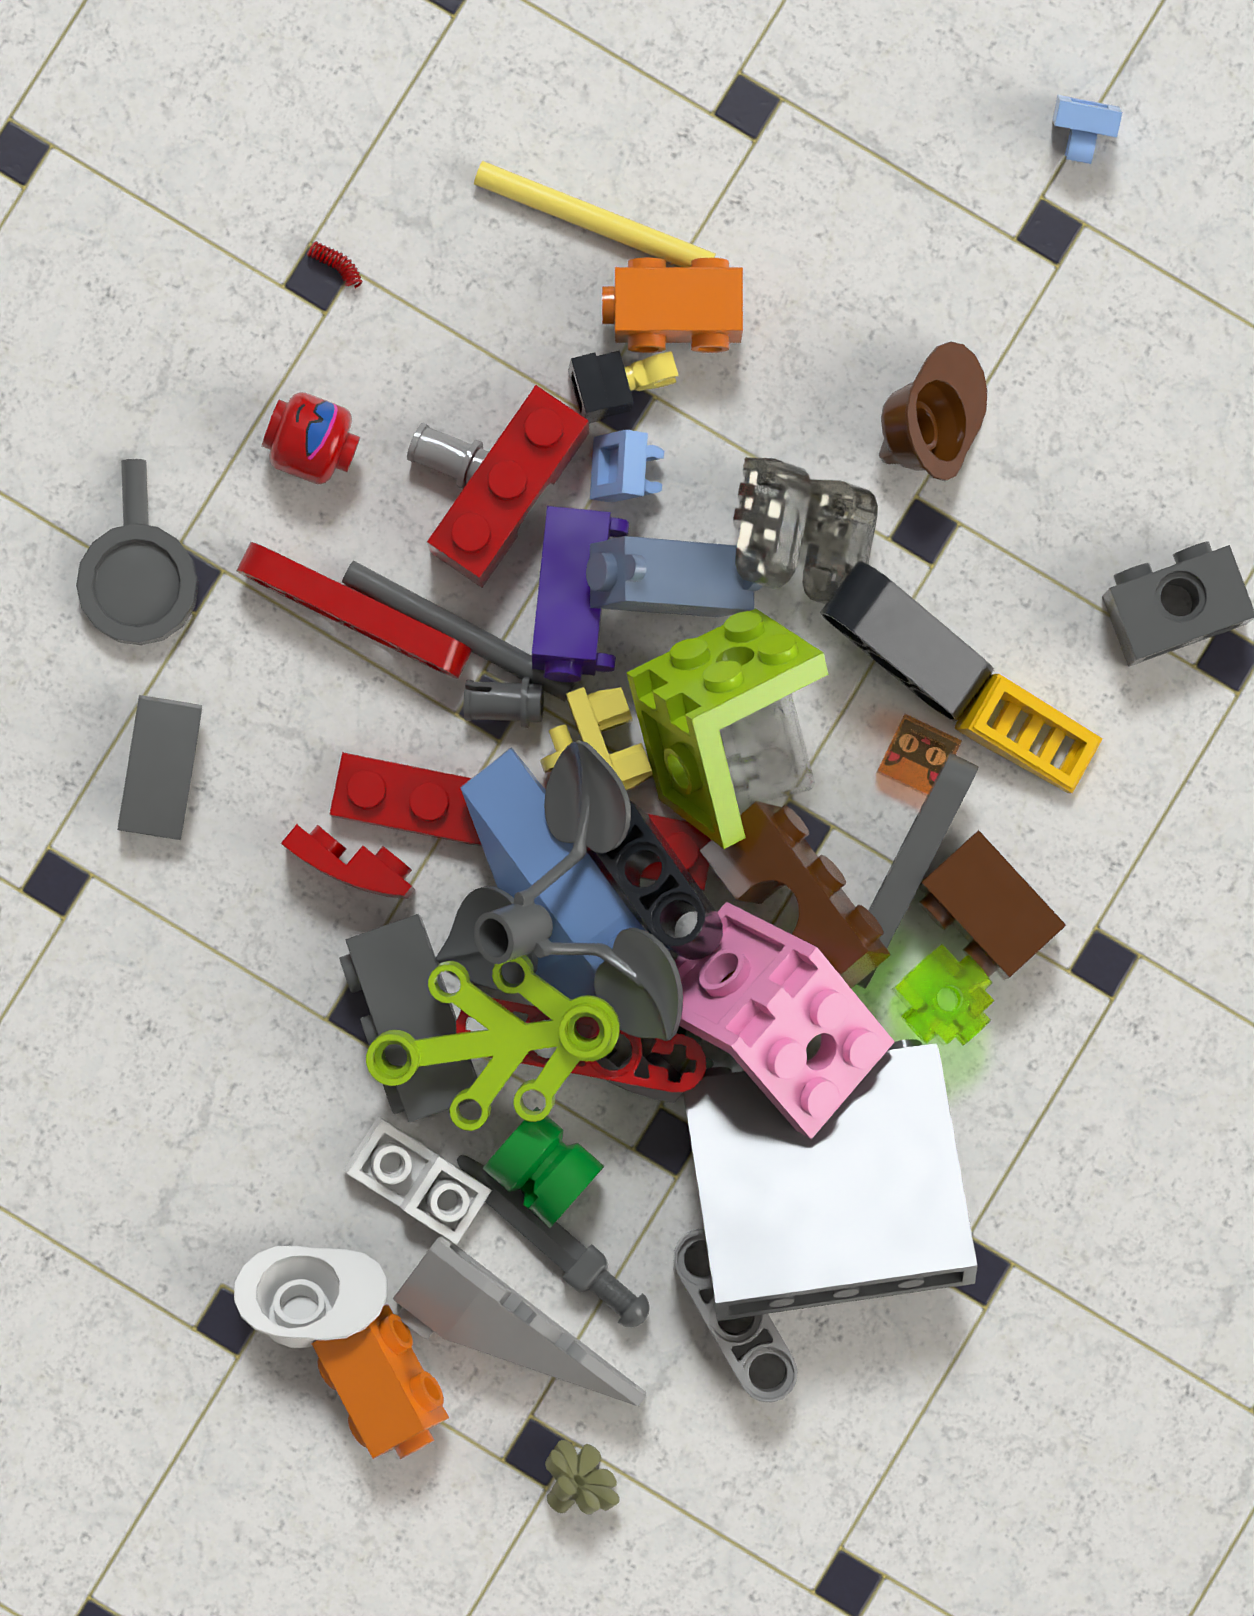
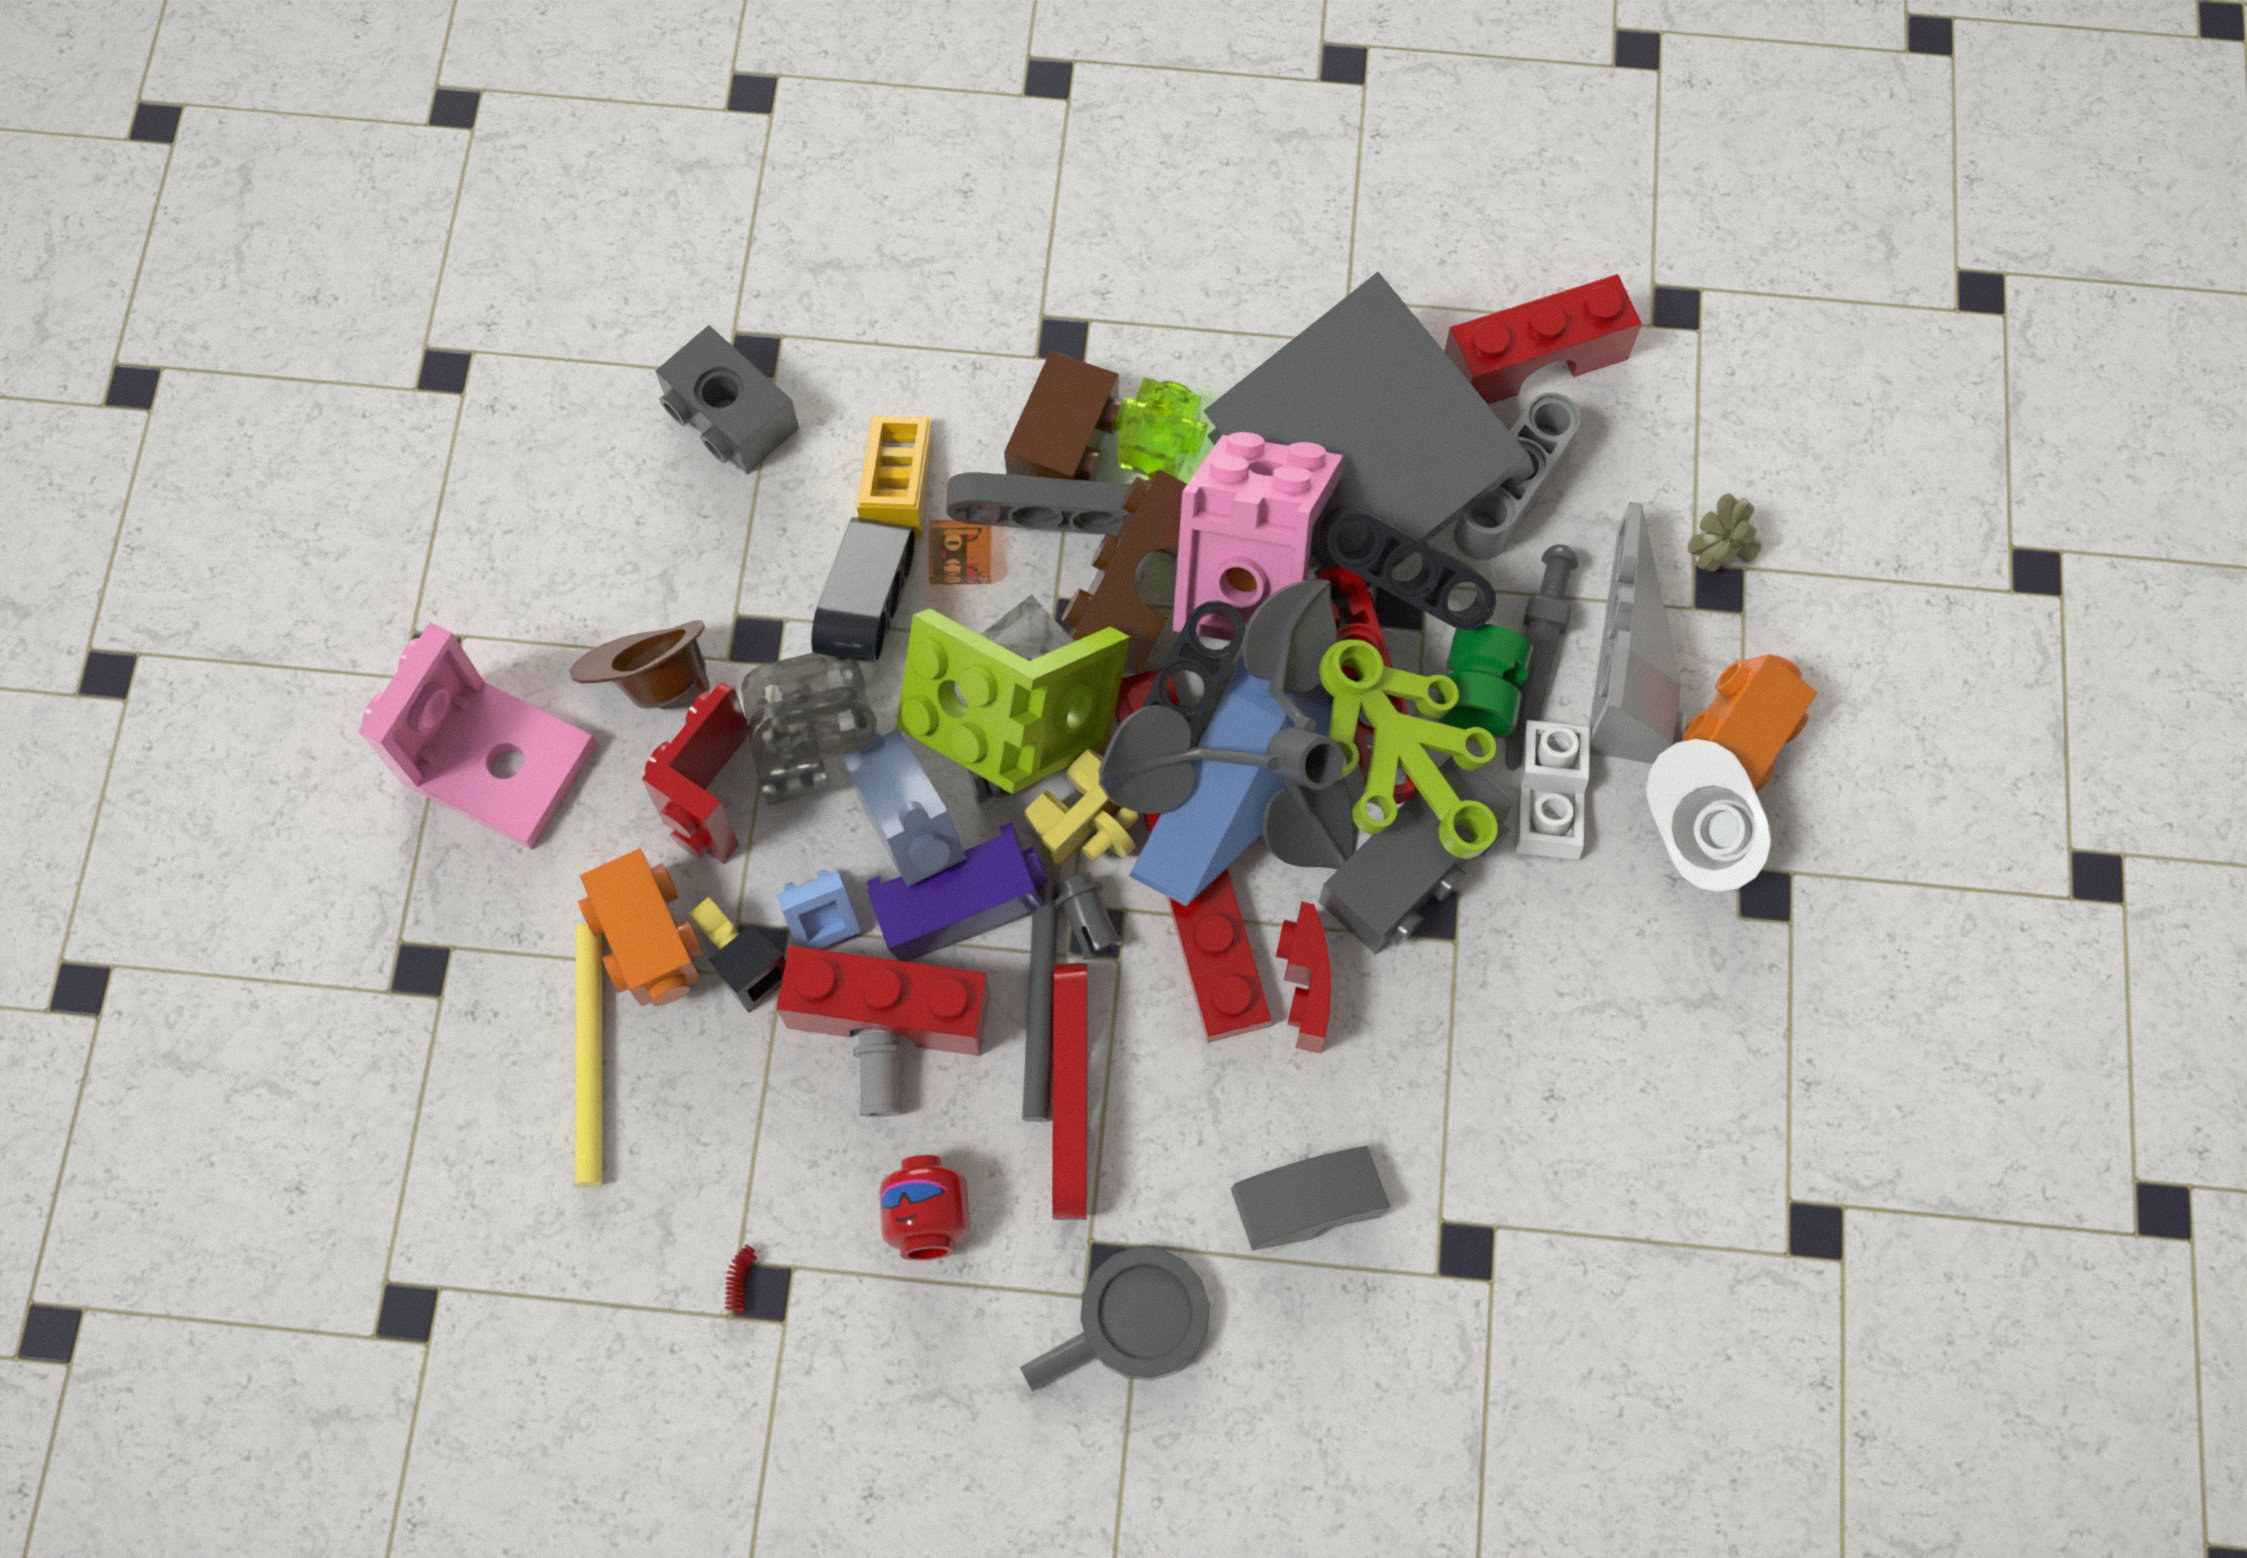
camera: 115 degrees left, 15 degrees down
(696, 1135) = (1429, 588): none -> black beam
(759, 386) = (685, 767): none -> red bracket
(861, 1414) = (1582, 325): none -> red arch
(944, 209) = (447, 727): none -> bright pink bracket
(1085, 122) = (318, 659): light blue tile -> none

